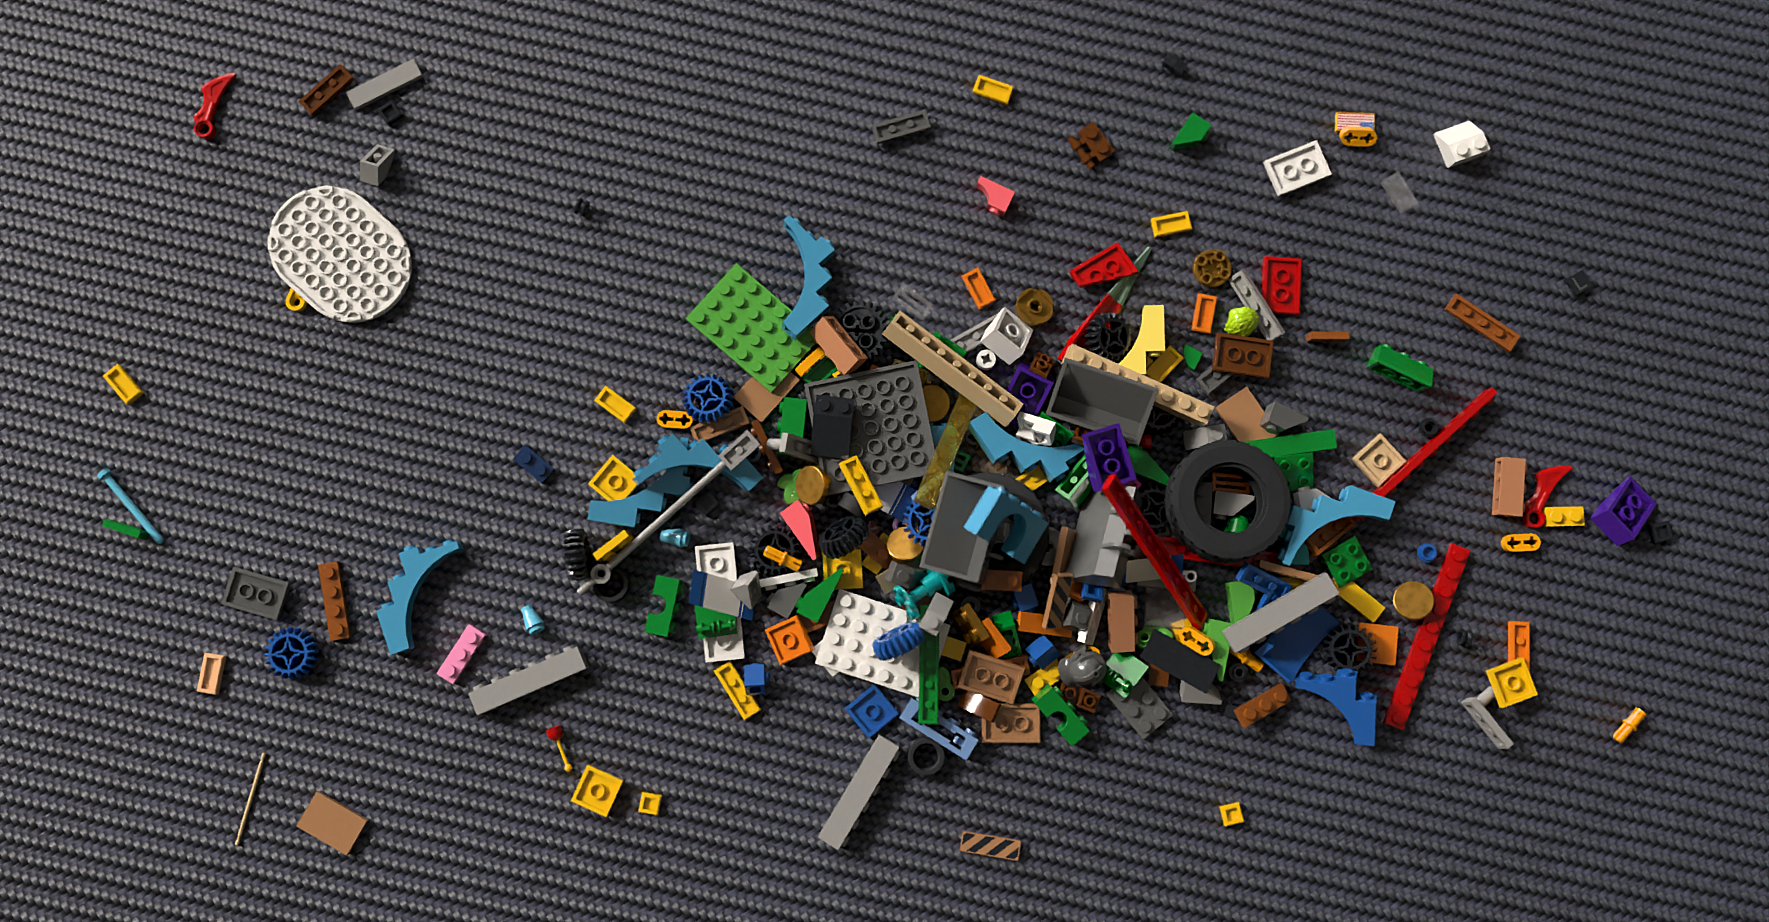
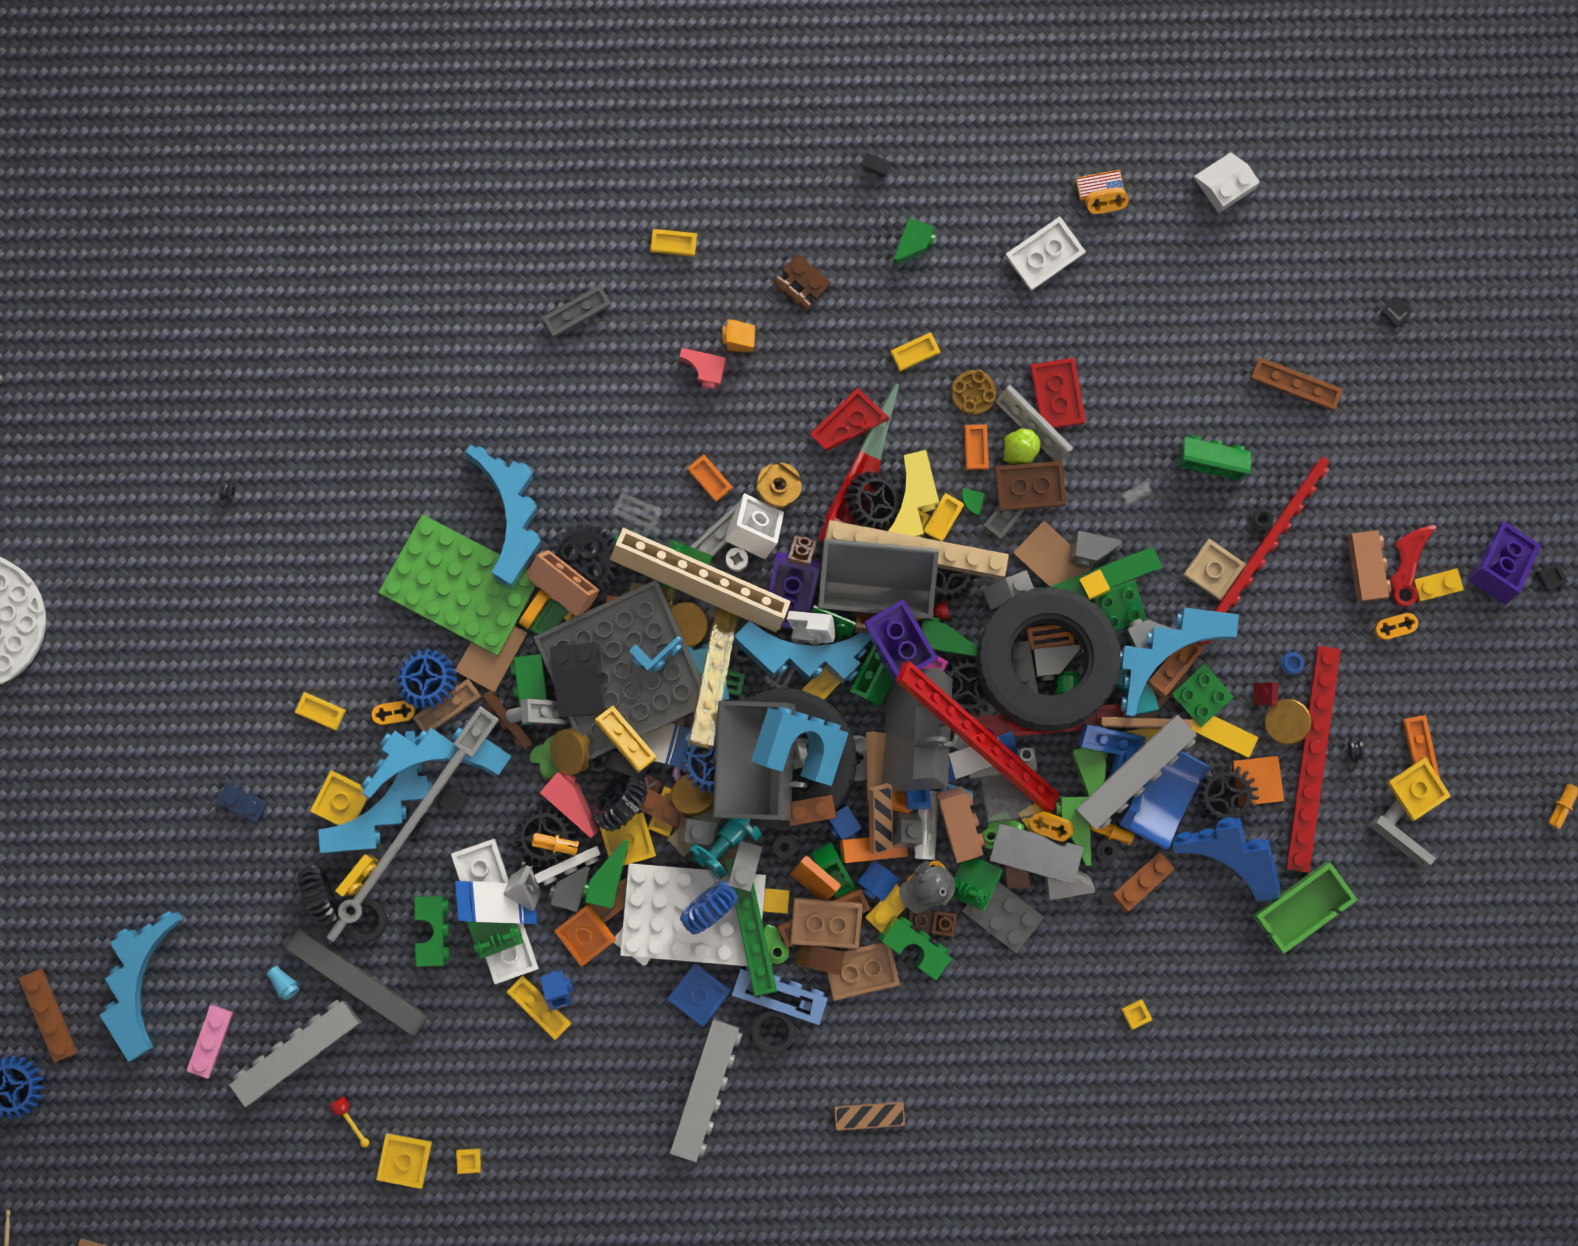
camera: 15 degrees left, 0 degrees up
(593, 633) = (356, 981): none -> dark grey beam
(676, 537) = (426, 848): medium azure cone -> none
(889, 422) = (641, 659): none -> dark azure bracket
(970, 625) = (788, 869): pearl gold plate -> none
(1029, 177) = (739, 336): none -> light orange slope
(1278, 449) = (1094, 585): none -> yellow tile
(1327, 337) = (1123, 441): dark orange tile -> none
(1328, 382) = (1137, 493): none -> clear pin
(1393, 758) = (1304, 907): none -> bright green piece
(1399, 192) = (1169, 254): clear tile -> none
(1399, 573) = (1265, 694): none -> dark red plate

